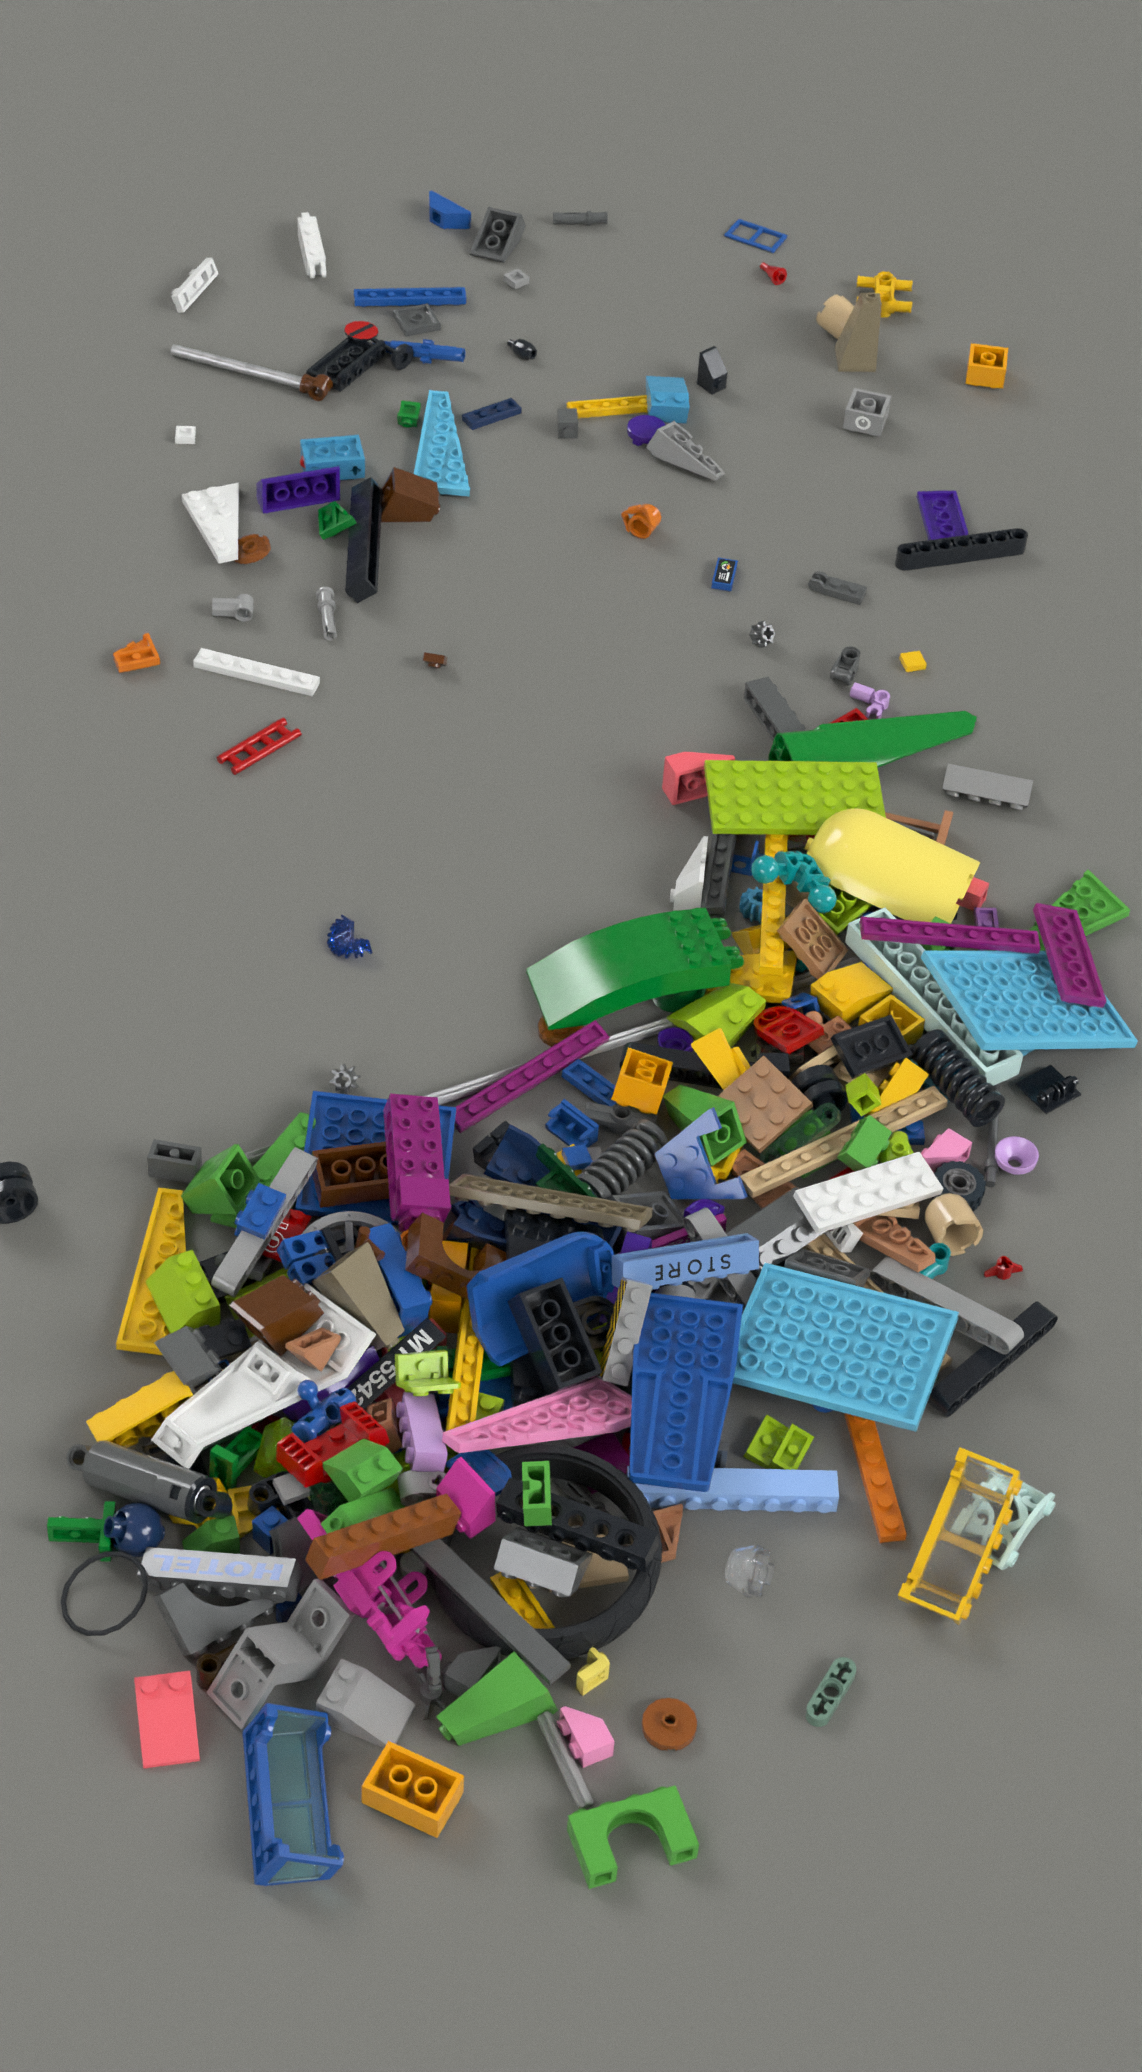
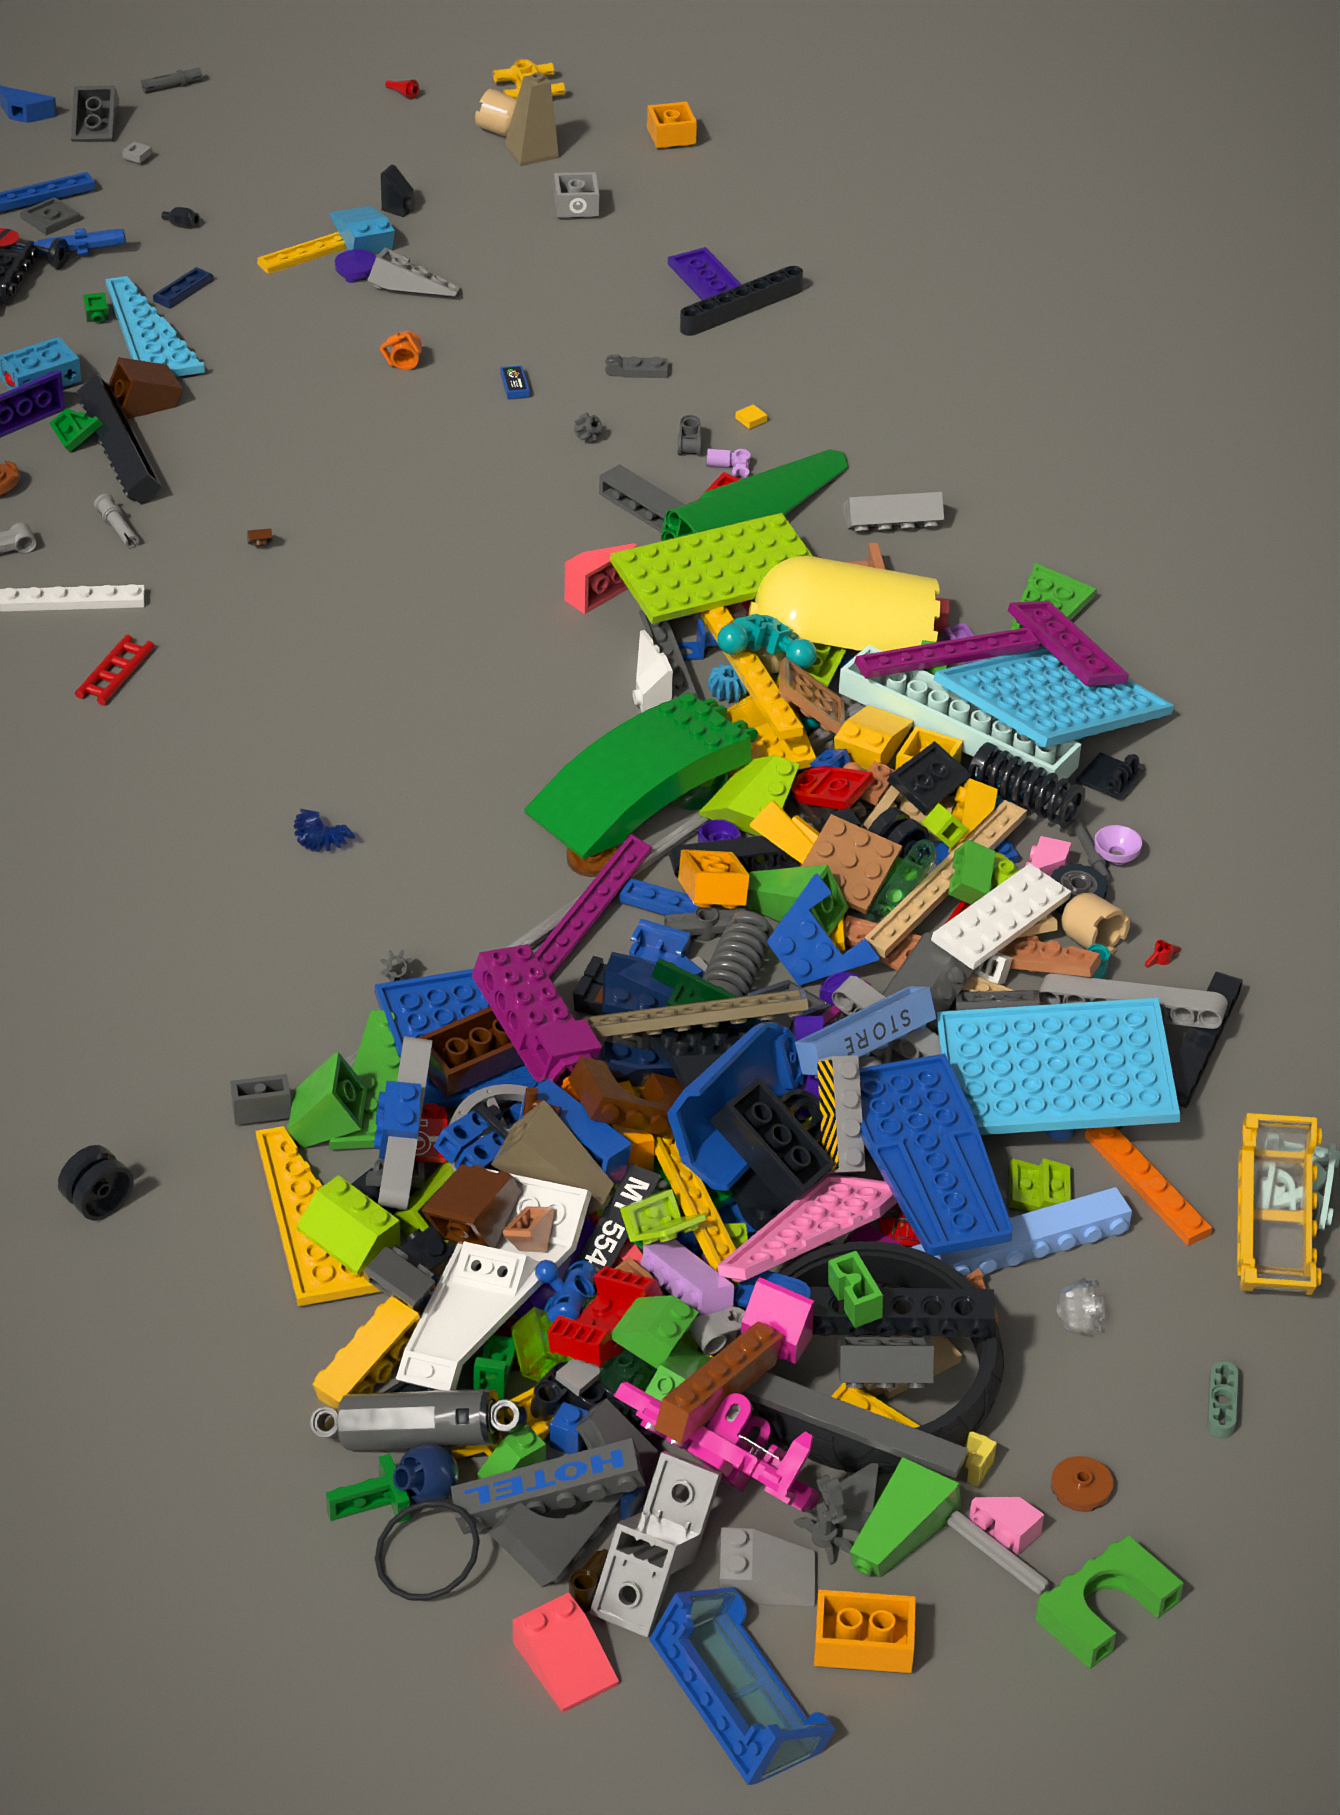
camera: 20 degrees left, 5 degrees down
(567, 423) = (270, 277): dark grey brick -> none
(760, 229) = (365, 51): blue window -> none

